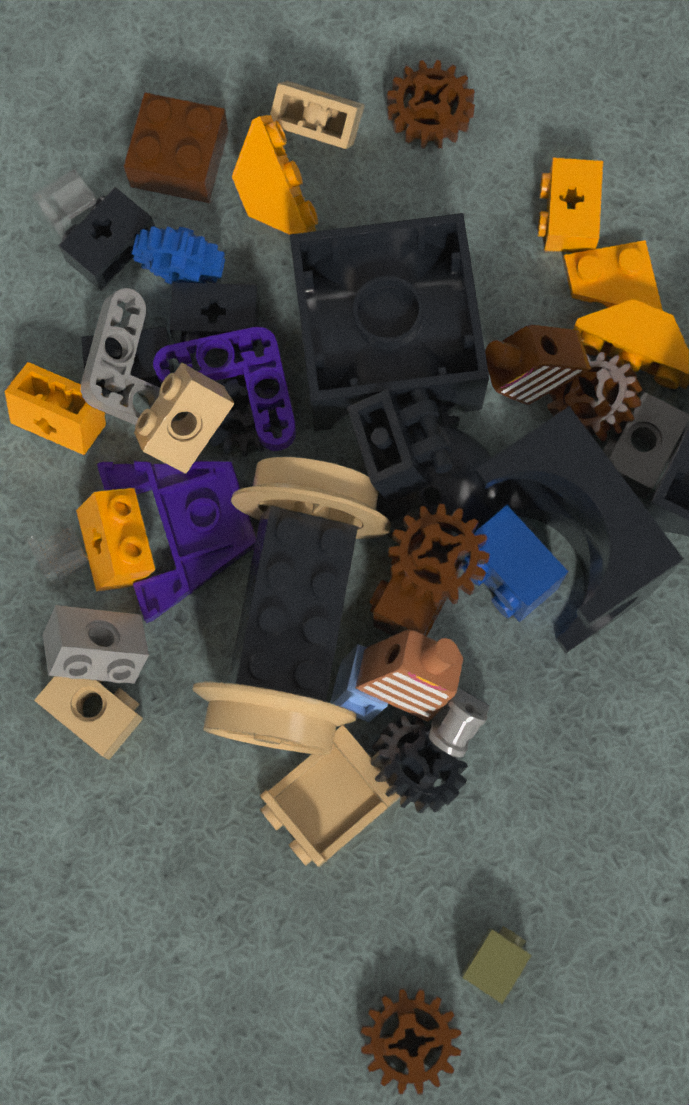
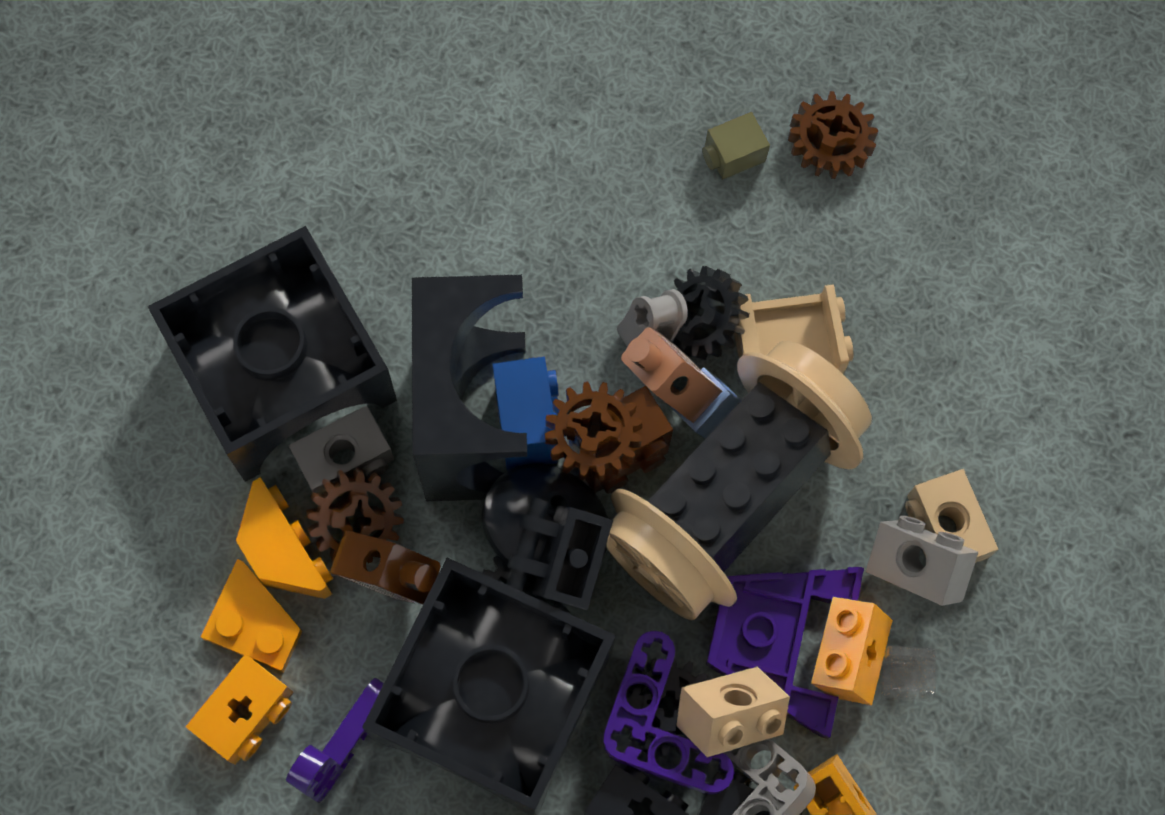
camera: 155 degrees left, 5 degrees down
(476, 198) = (318, 770): none -> dark purple beam

